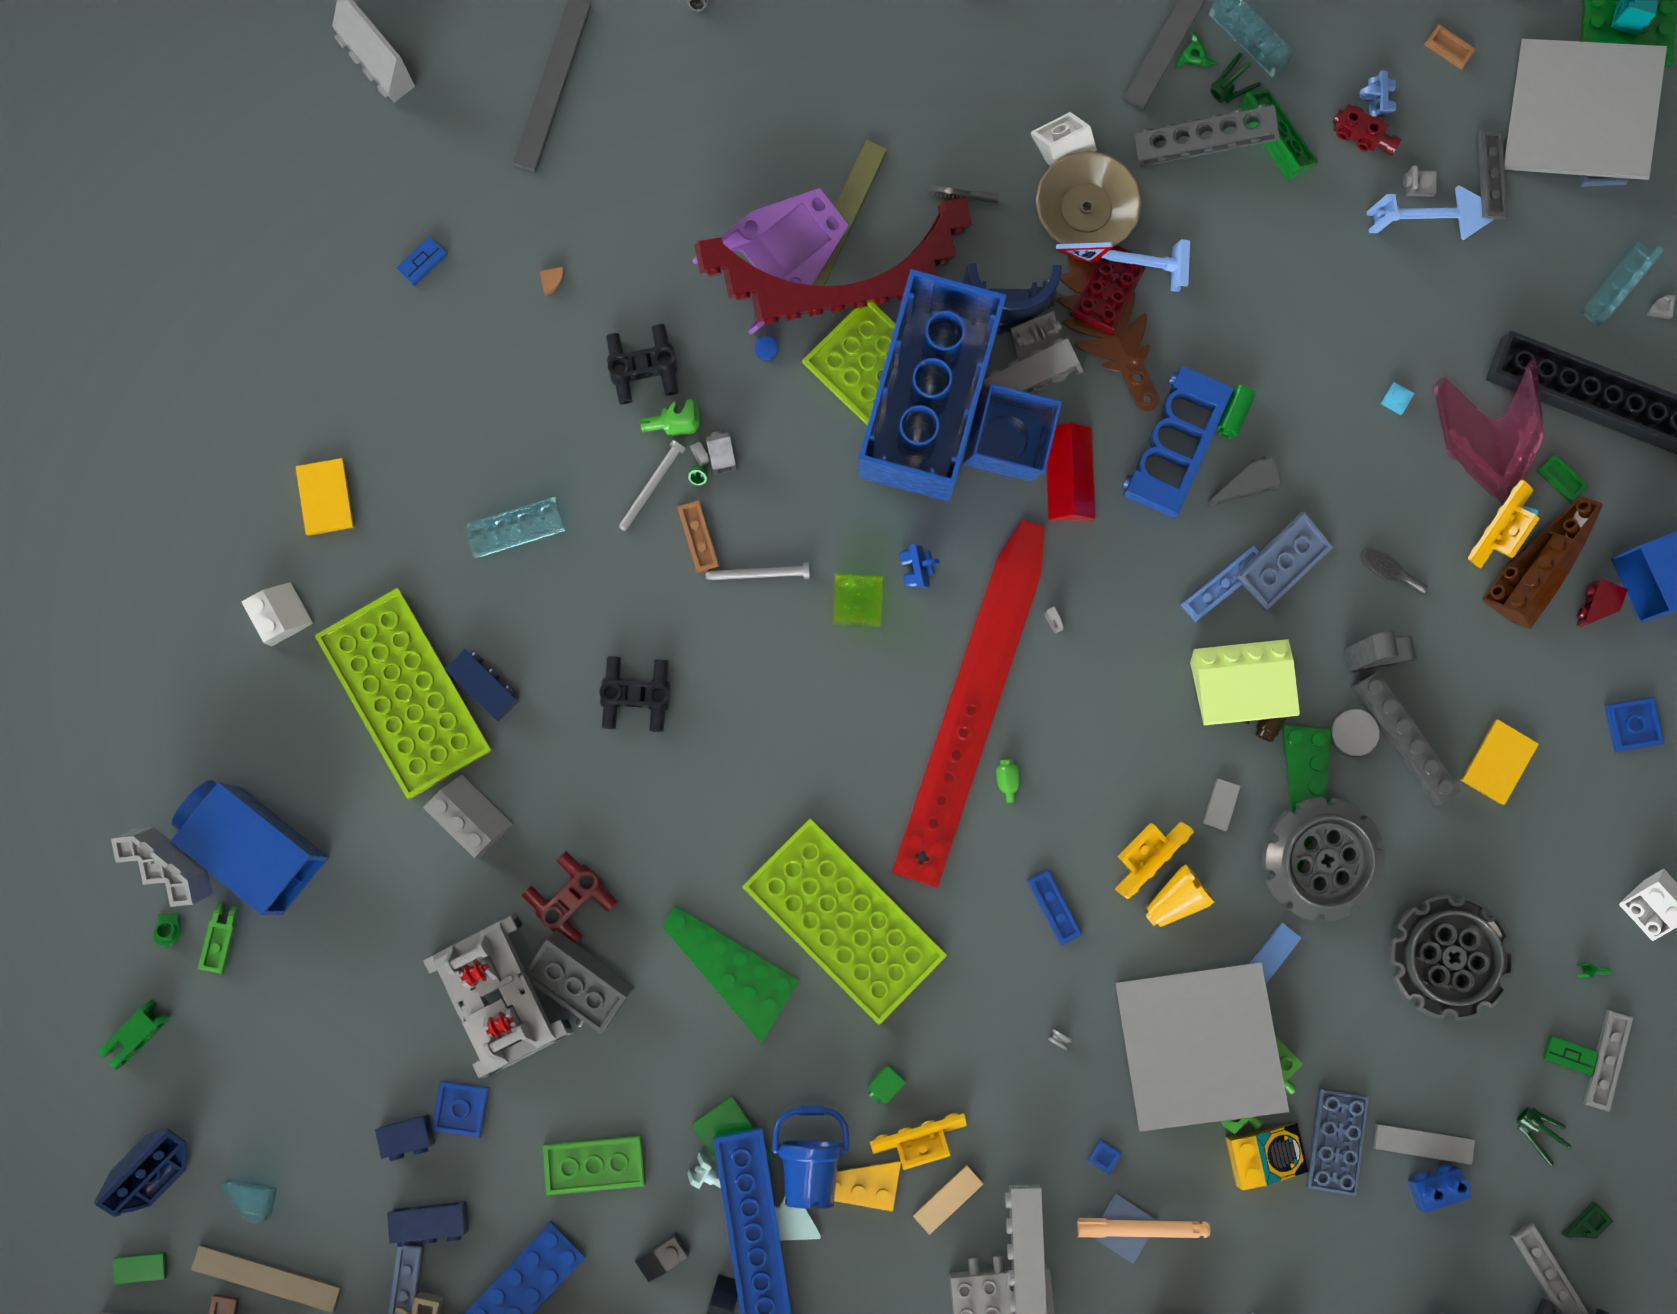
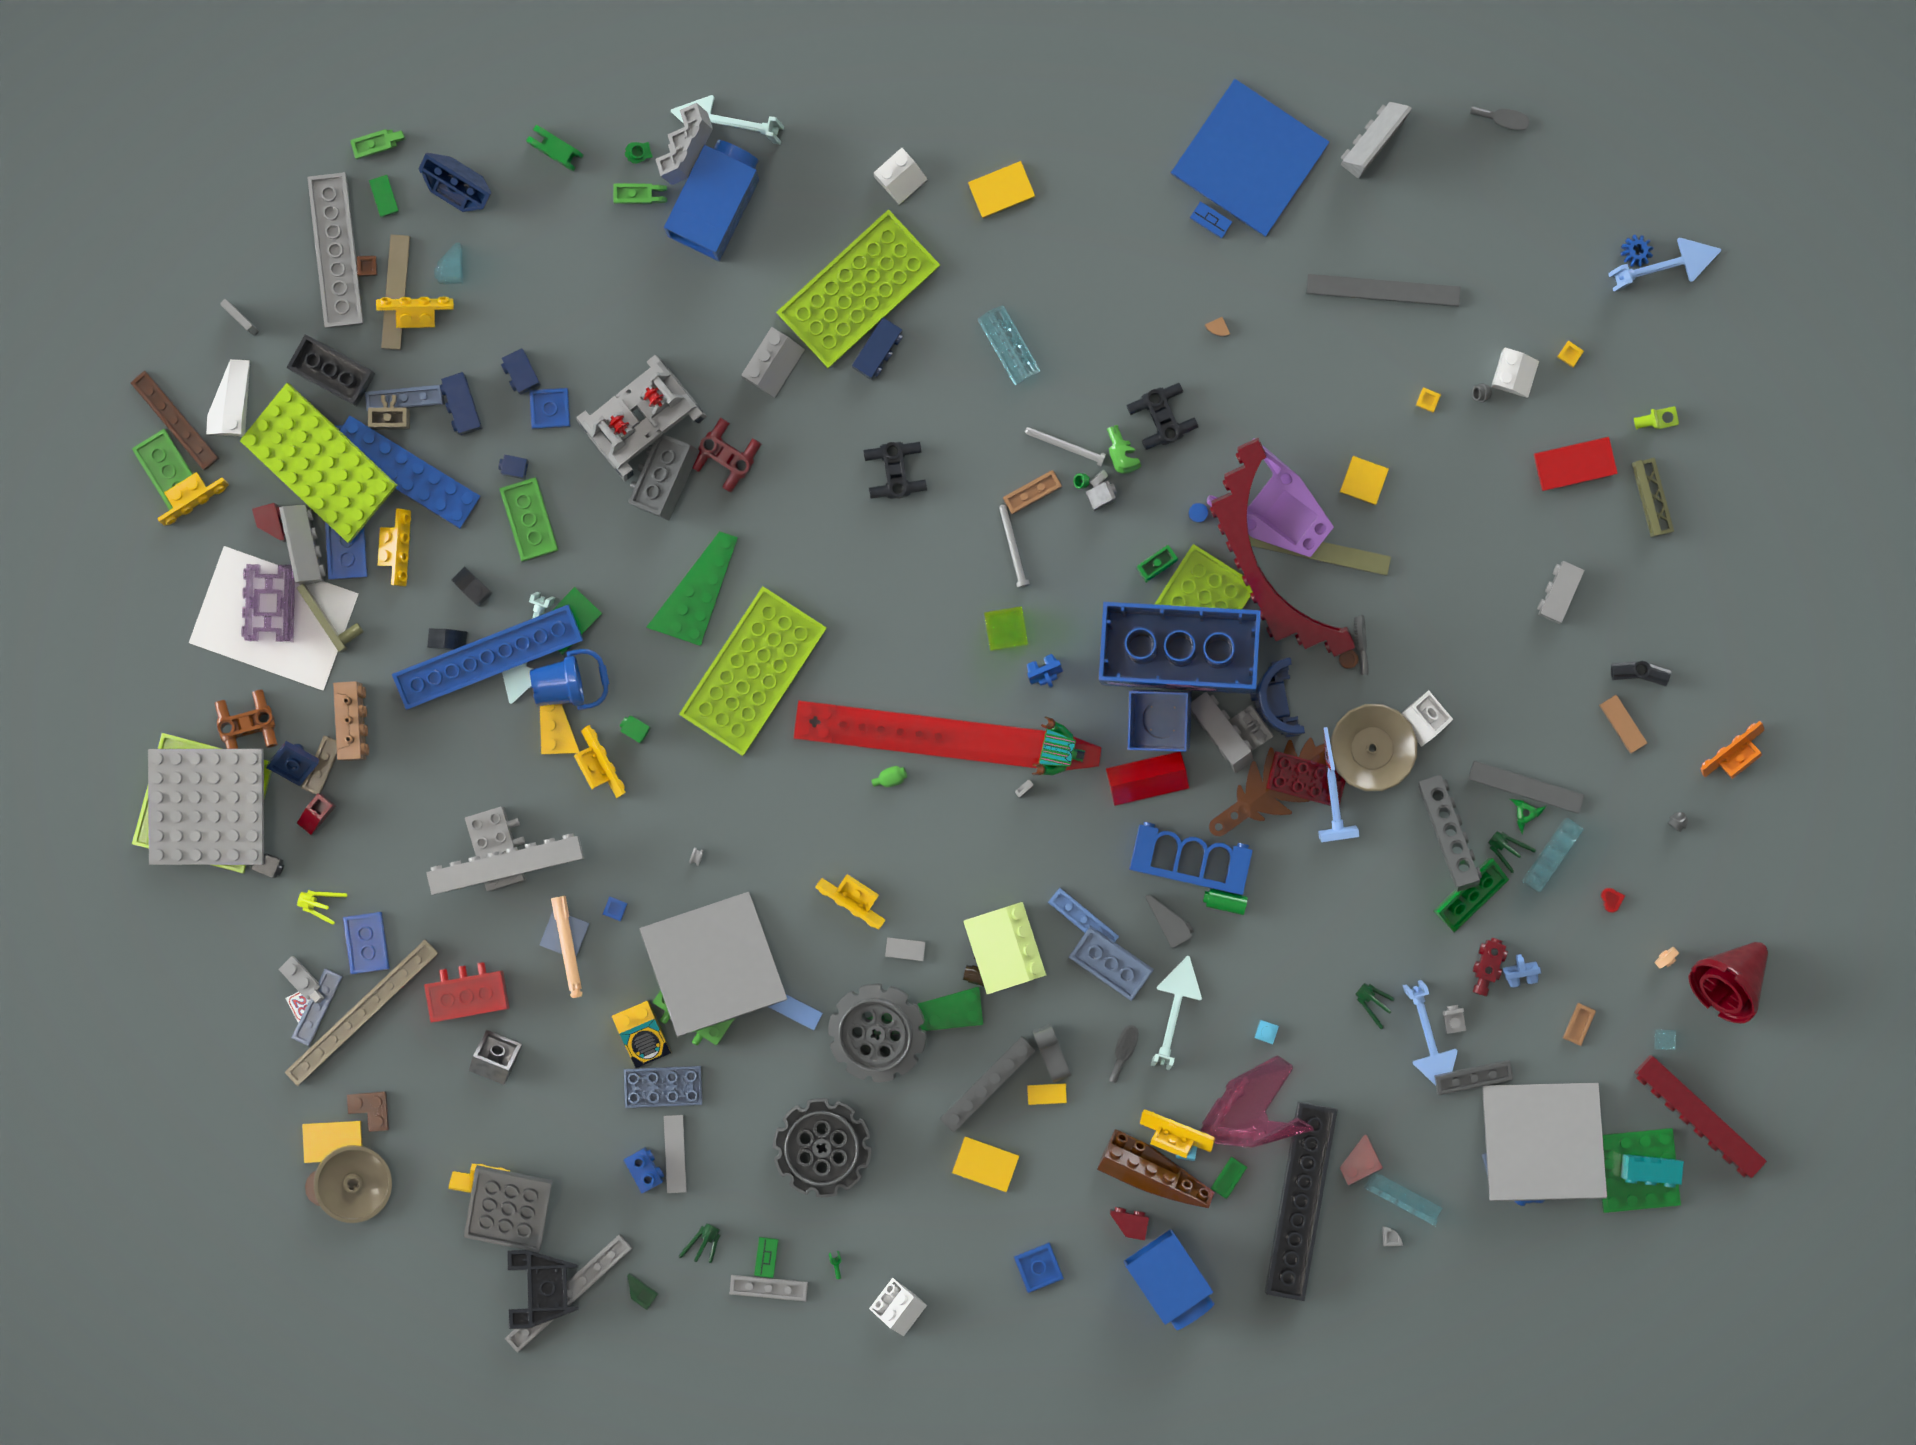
camera: 85 degrees right, 5 degrees up
(69, 1264) = (376, 142): none -> bright green hinge
(178, 757) = (769, 129): none -> light aqua piece
(296, 1260) = (415, 312): none -> yellow bracket
(359, 201) = (1250, 157): none -> blue tile
(523, 1171) = (513, 466): none -> dark blue brick
(692, 61) = (1428, 400): none -> yellow tile
(770, 152) = (1364, 480): none -> yellow tile
(817, 405) = (1157, 563): none -> green brick
(947, 1199) = (558, 794): tan tile -> none
(978, 213) = (1348, 659): none -> reddish brown tile
(1017, 569) = (1057, 749): none -> torso
(1054, 907) = (797, 833): blue tile -> none
(1179, 898) = (824, 928): yellow cone -> none
(1323, 483) = (1181, 983): none -> light aqua piece
(1354, 732) = (984, 1044): light grey tile -> none
(1373, 275) = (1366, 994): none -> dark green plant
(1427, 670) = (1046, 1094): none -> yellow tile
(1570, 321) = (1361, 1162): none -> wing

